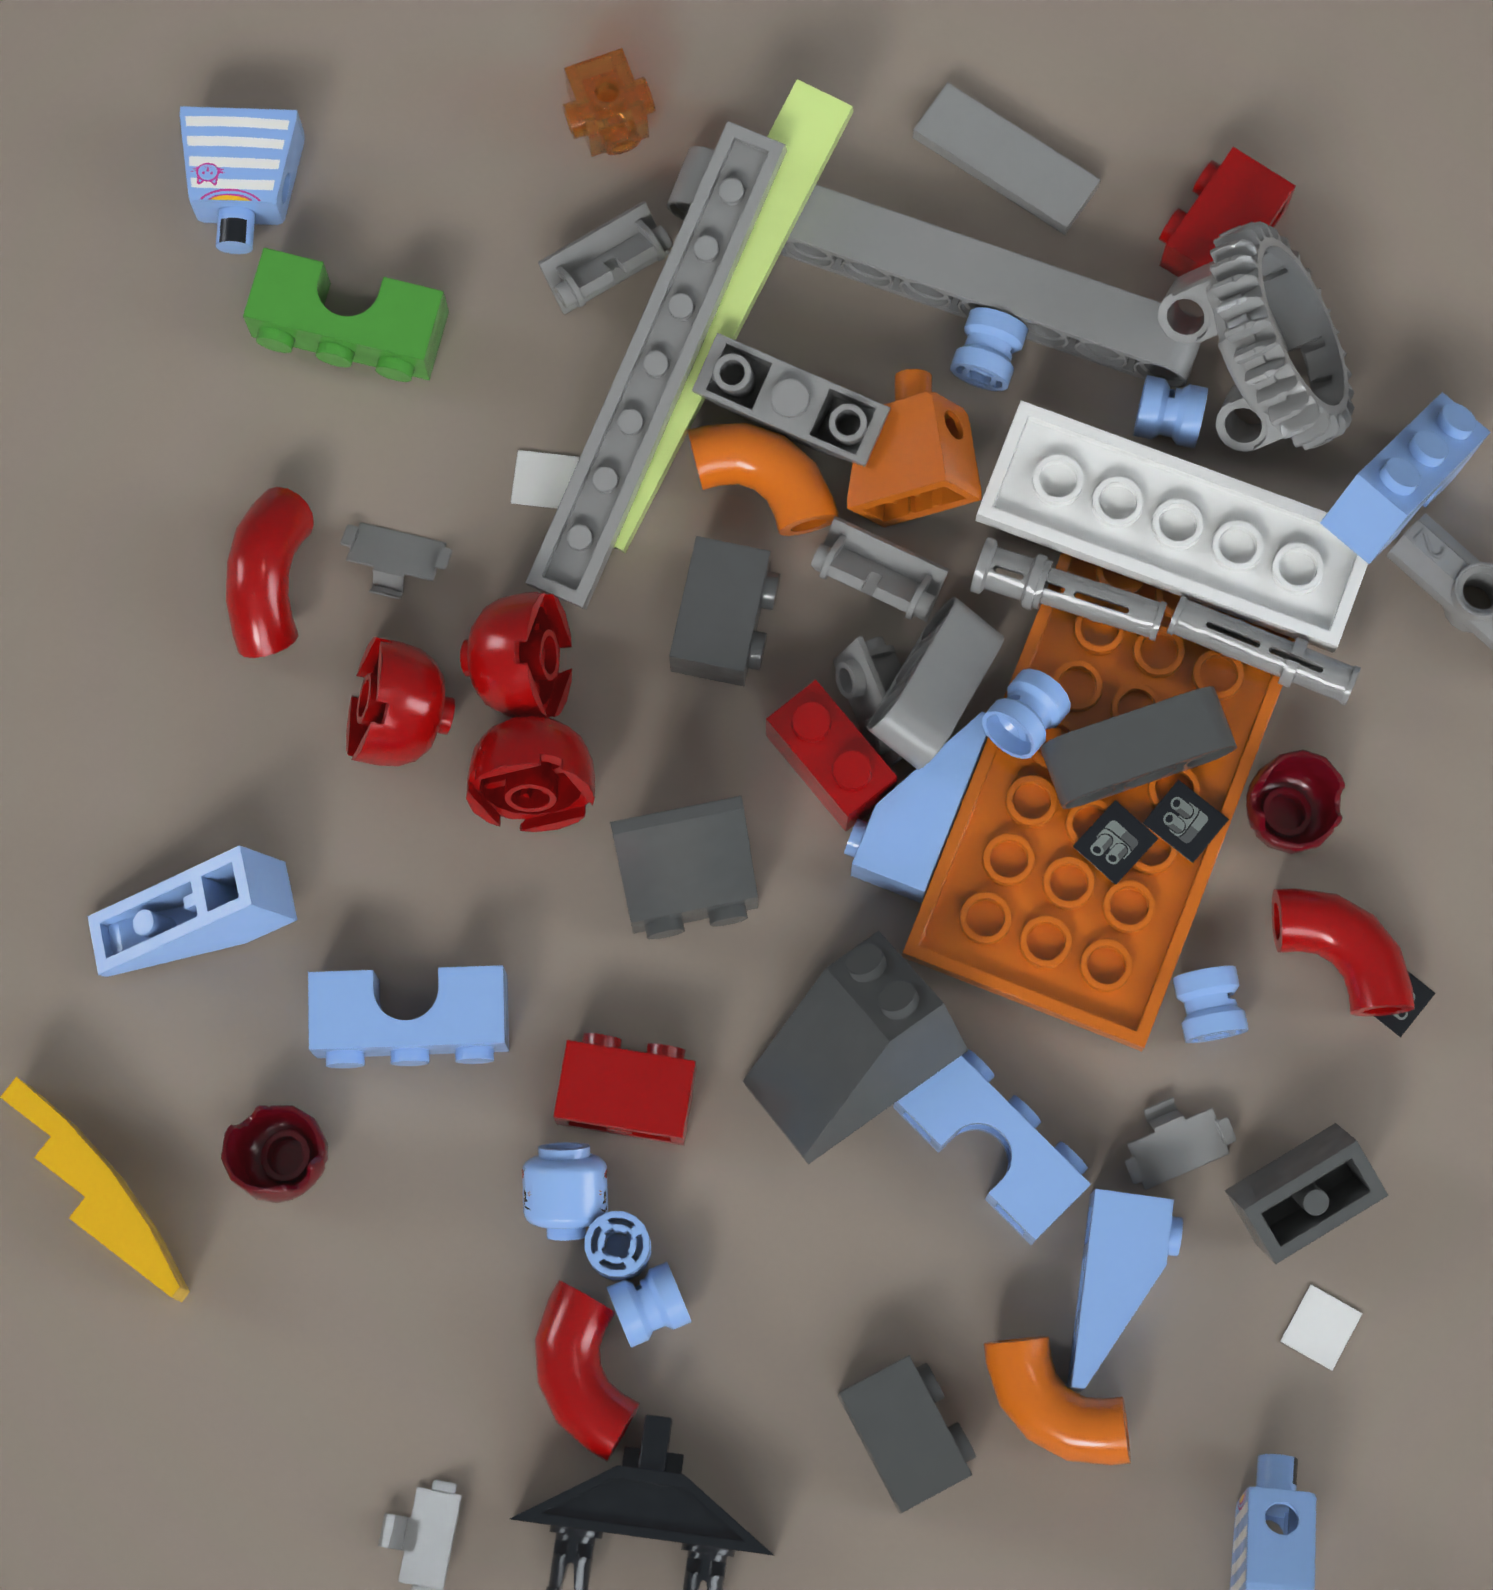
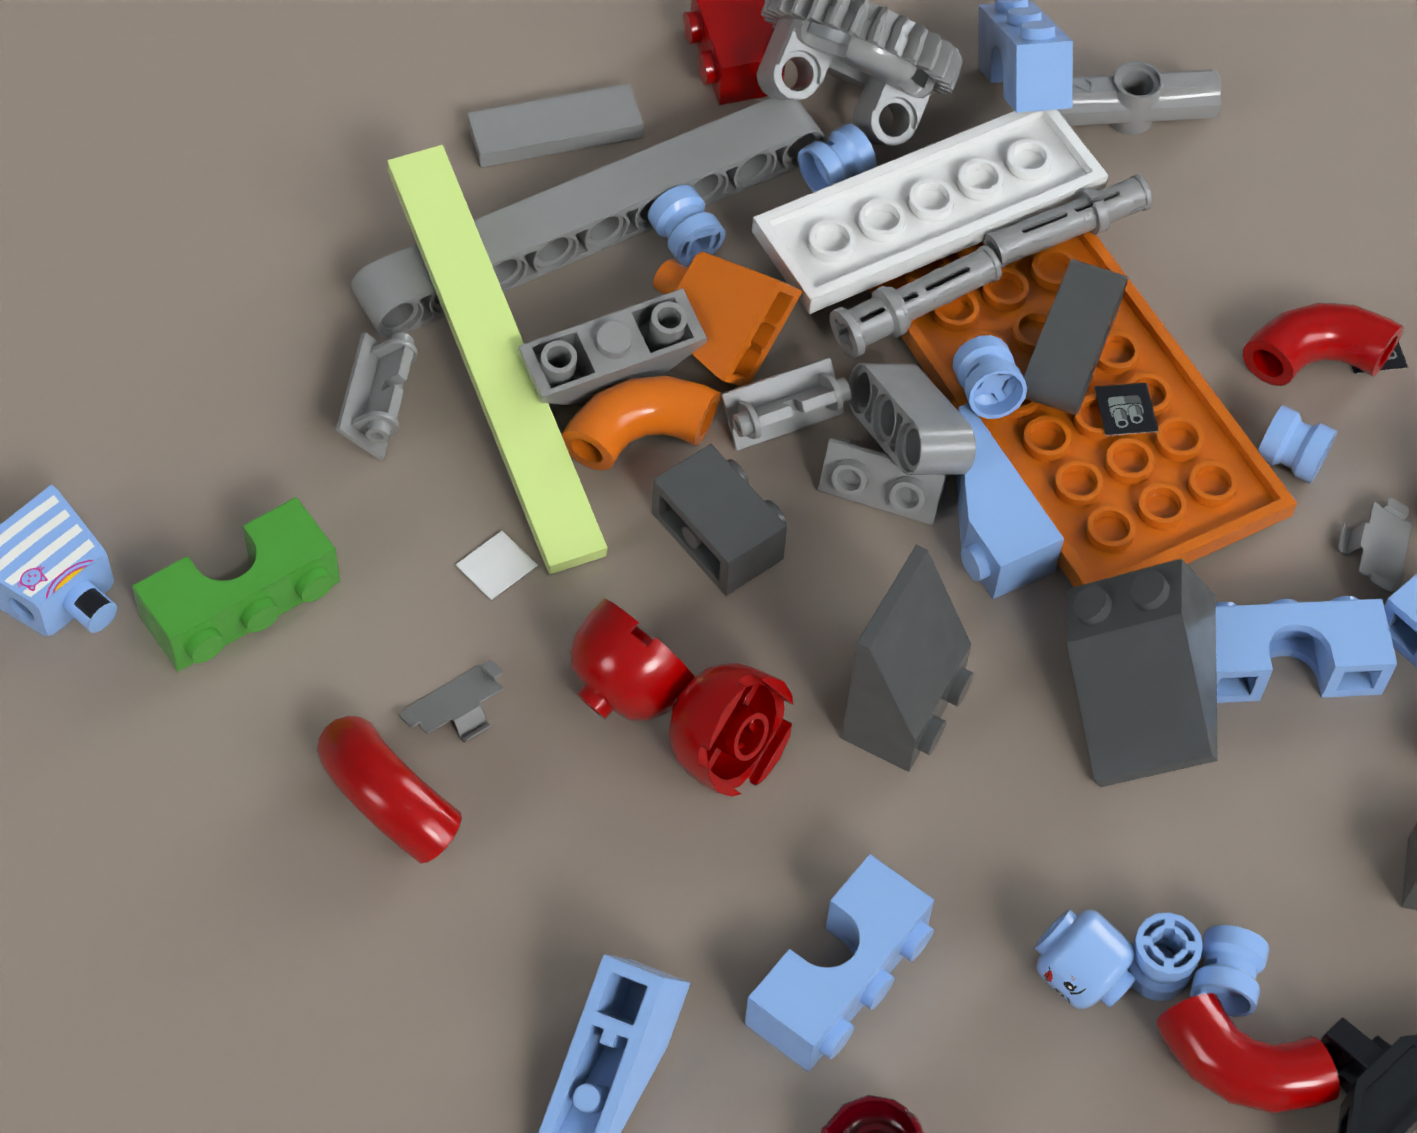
camera: 55 degrees left, 20 degrees down
(397, 706) = (580, 778): red cylinder -> none
(607, 104) = (264, 302): clear orange brick -> none
(626, 1089) = (1039, 857): red brick -> none
(656, 365) = (503, 407): light grey plate -> none
(830, 754) = (883, 523): red brick -> none
(1185, 821) = (1148, 358): black sticker -> none
(1295, 801) = (1188, 291): dark red hair -> none

